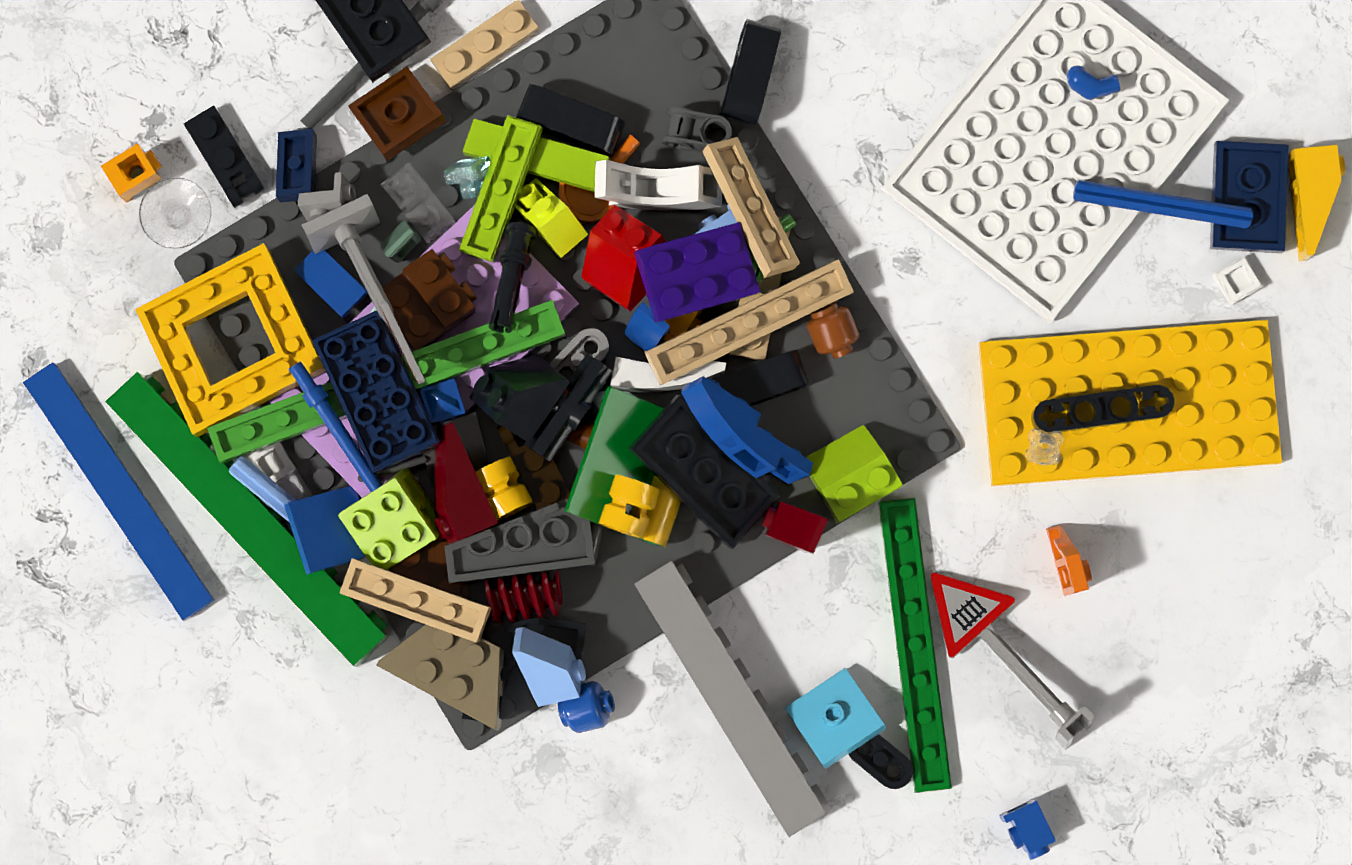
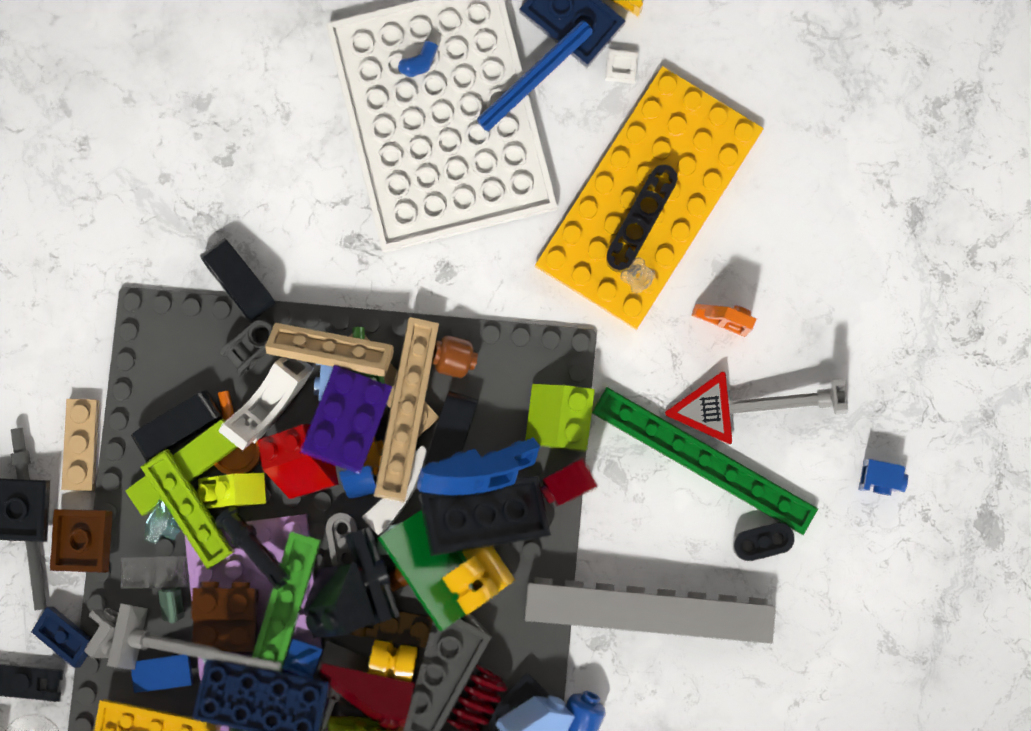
camera: 50 degrees left, 0 degrees up
(835, 718) = (715, 551): medium azure plate -> none

